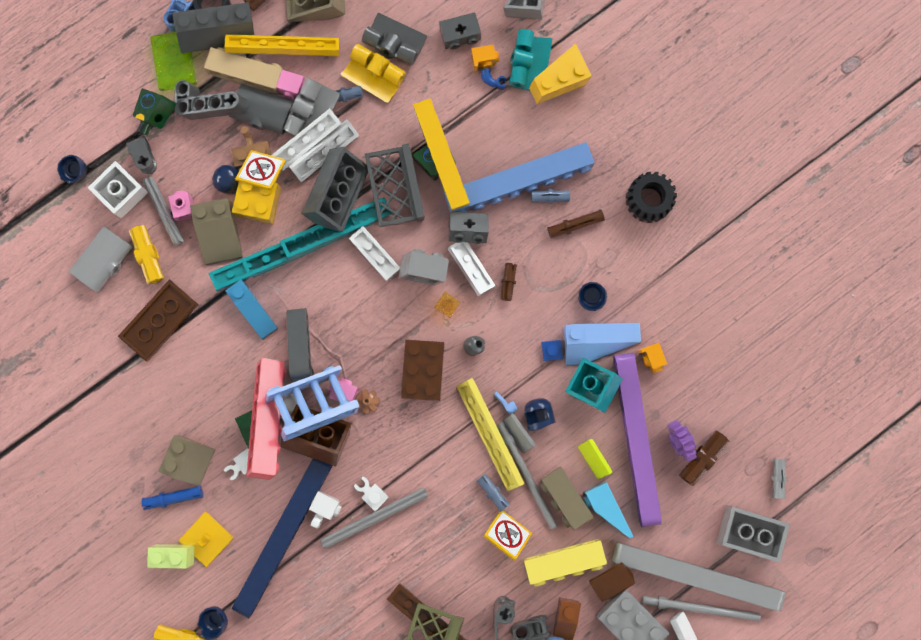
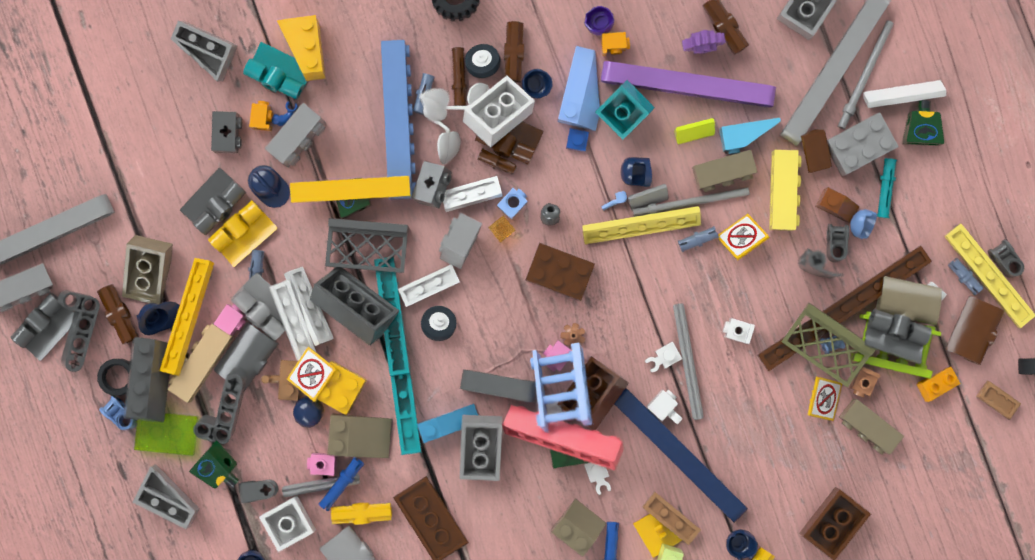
camera: 75 degrees left, 5 degrees up
(111, 75) = (165, 498): none -> light grey wedge
(175, 230) = (346, 477): none -> blue pin
(219, 546) = (671, 518): none -> medium nougat plate
(235, 344) = (481, 447): none -> light grey brick
(273, 19) = (157, 317): none -> dark blue piece
(342, 272) = (438, 323): none -> black wheel
(417, 566) = (746, 334): none -> white brick
(423, 83) = (268, 186): none -> dark blue piece
(468, 301) = (509, 211): none -> light blue brick
(475, 91) = (296, 135): none -> light grey brick
(535, 286) = (518, 143): none -> reddish brown panel
(539, 206) = (435, 109): none -> white plant
(555, 267) = (498, 111): none -> white brick
(597, 240) = (482, 61): none -> black wheel
(615, 267) = (514, 50): none -> reddish brown piece
(670, 337) = (599, 20): none -> dark purple hair

